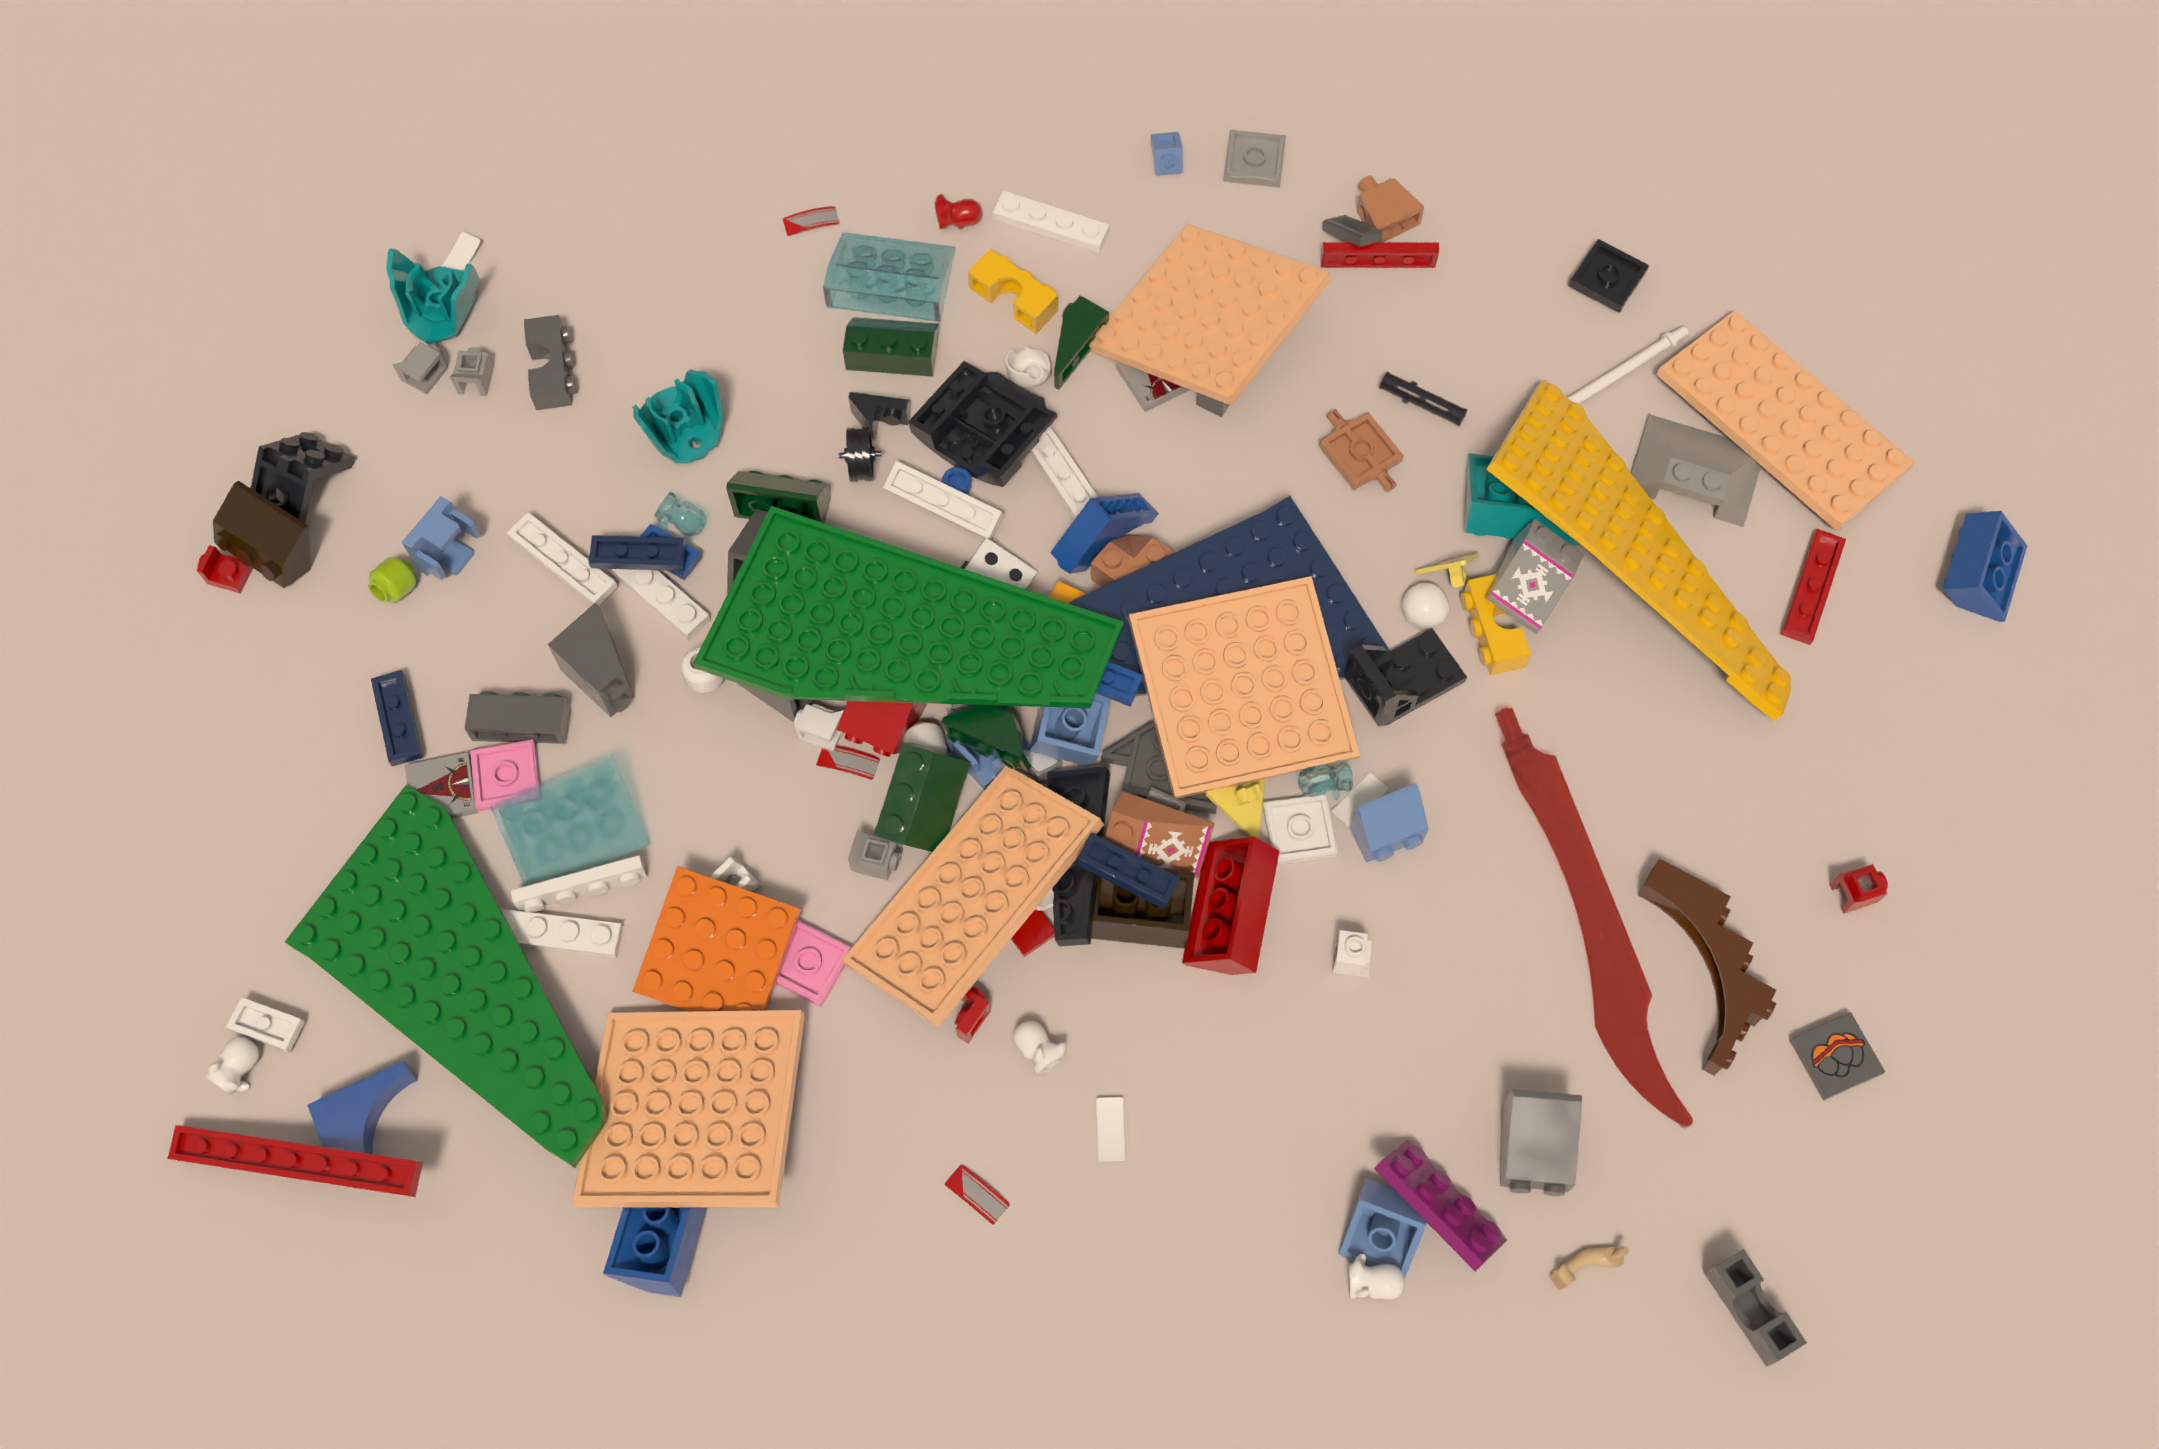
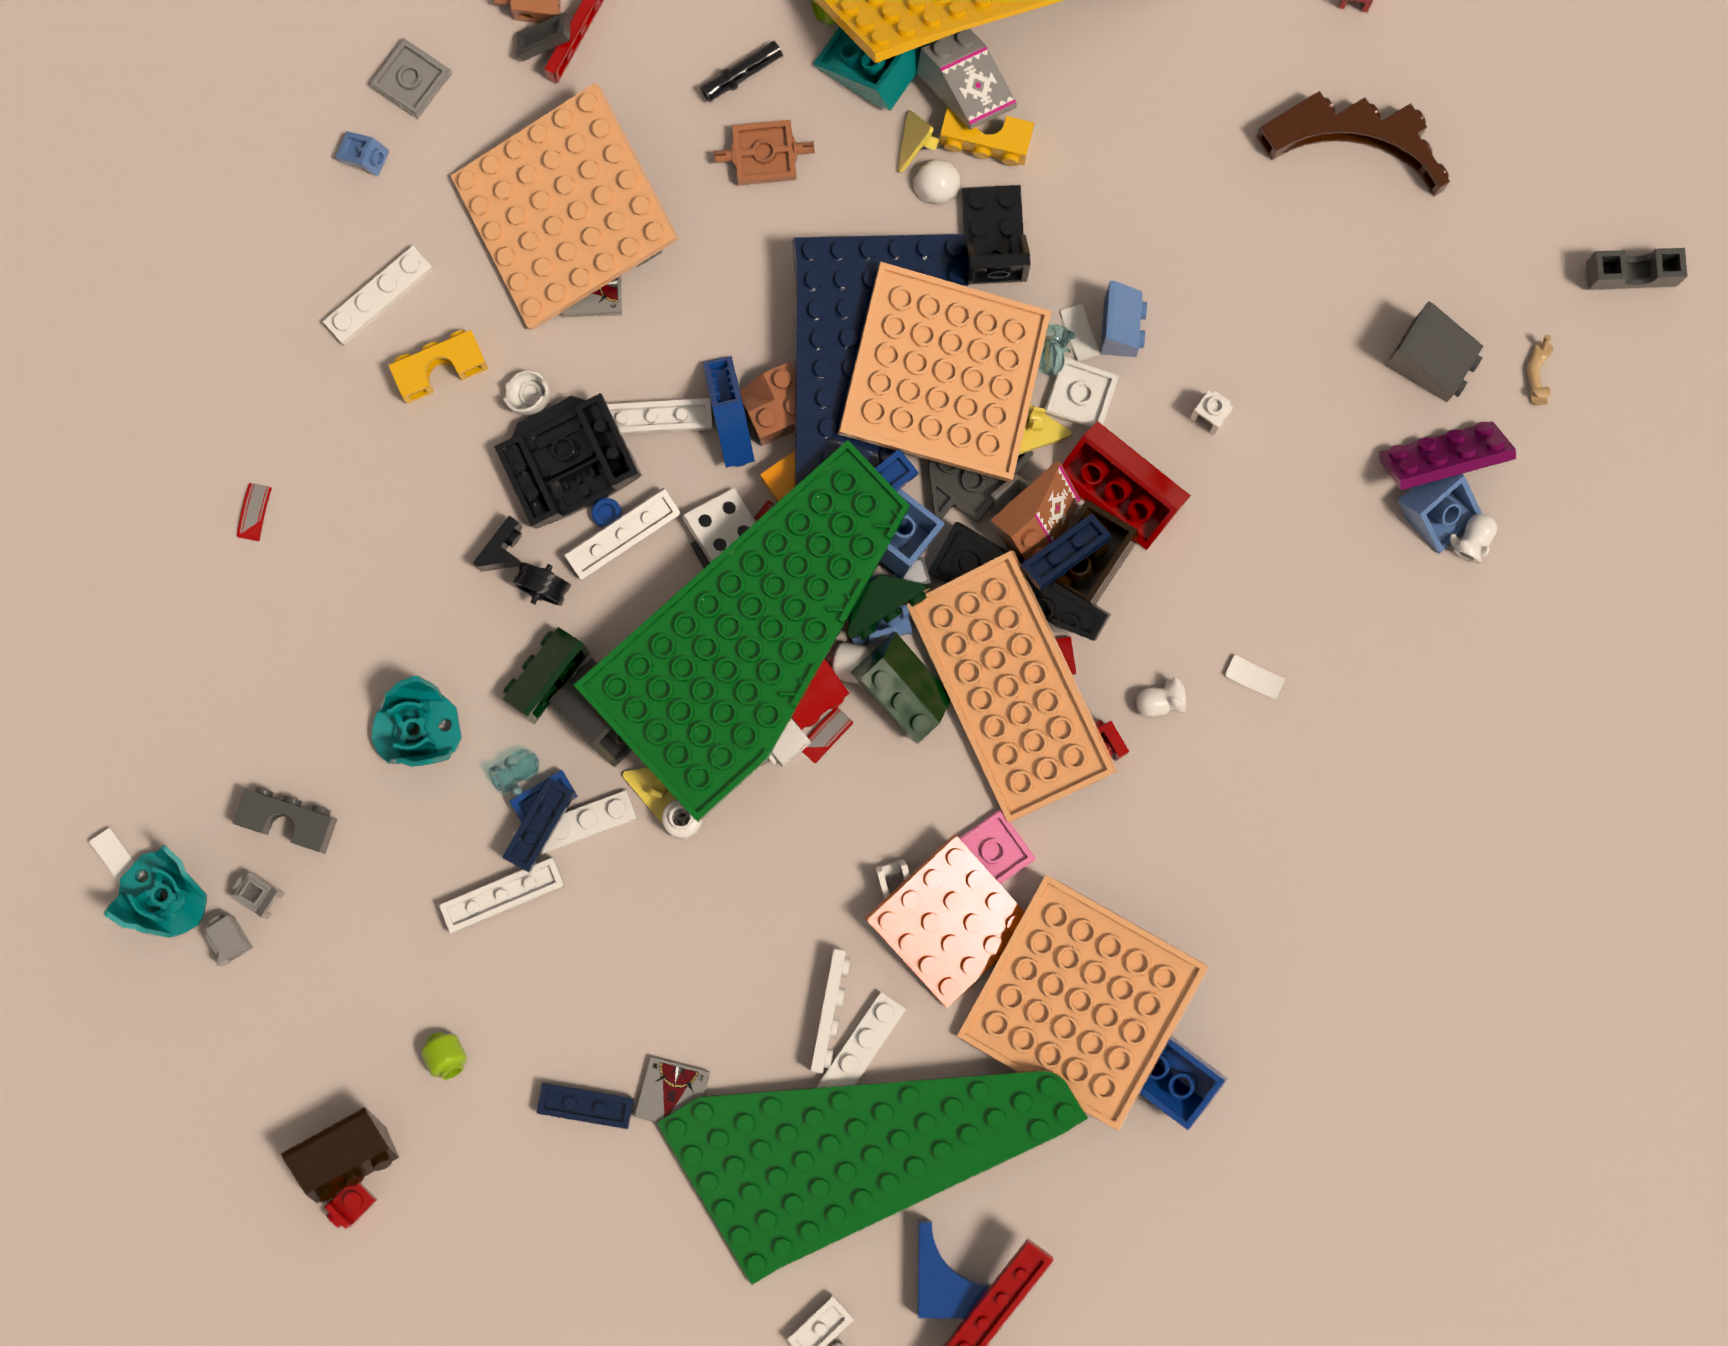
camera: 65 degrees left, 15 degrees up
(292, 468) = (288, 1100): black bracket -> none
(435, 541) = (433, 993): medium blue panel -> none
(503, 771) = (688, 1033): bright pink tile -> none
(517, 717) = (641, 999): dark grey brick -> none
(570, 822) = (766, 995): clear light blue slope -> none
(592, 662) = (629, 908): dark grey slope -> none
(873, 856) = (930, 752): light grey window -> none
(888, 276) = (358, 467): clear light blue slope -> none
(890, 346) = (434, 501): dark green slope -> none
(960, 213) = (327, 373): red animal -> none
(977, 1194) = (1253, 808): sticker -> none
(1077, 333) = (515, 333): dark green slope -> none
(1616, 976) = (1328, 215): clear red piece -> none
(1837, 1056) = (1477, 89): dark grey tile -> none

